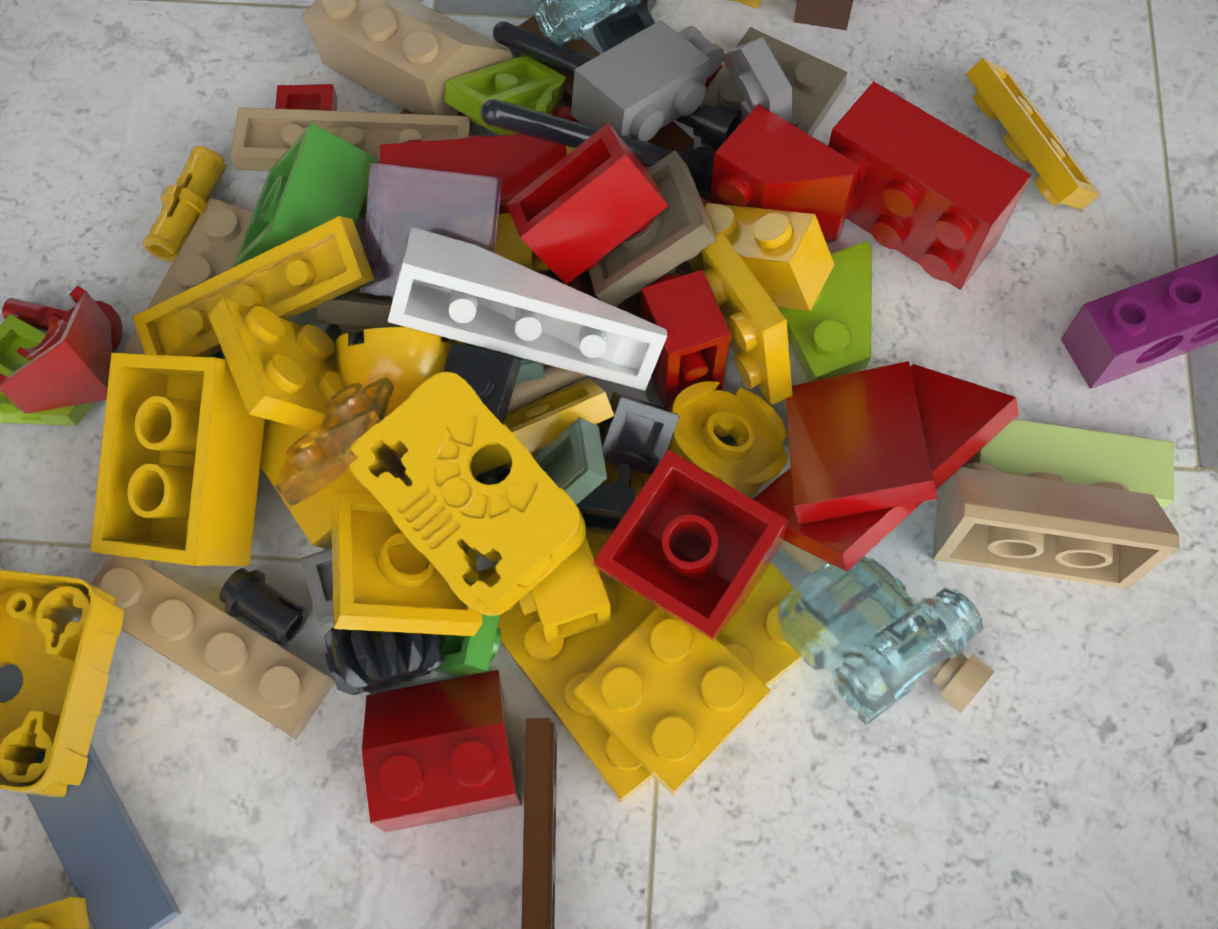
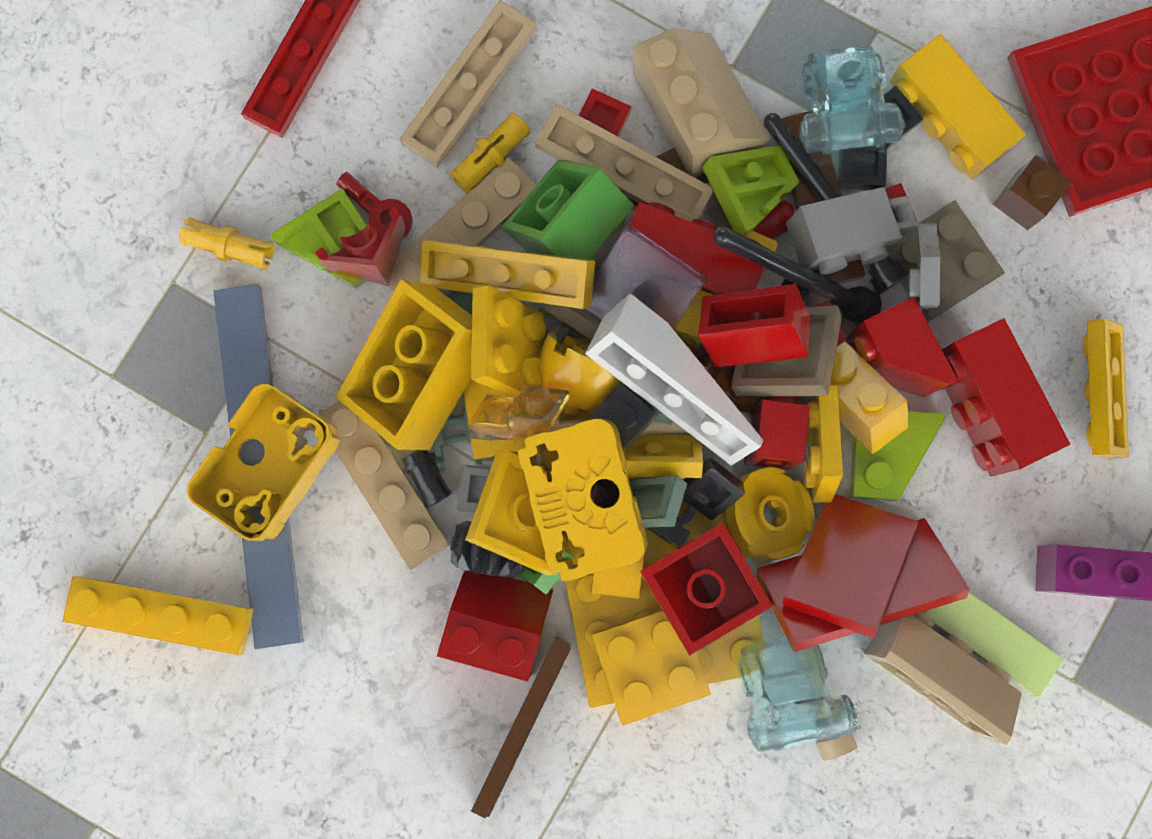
camera: 20 degrees right, 15 degrees up
(126, 147) = (468, 84): none -> tan plate
(264, 554) = (441, 440): none -> sand green piece

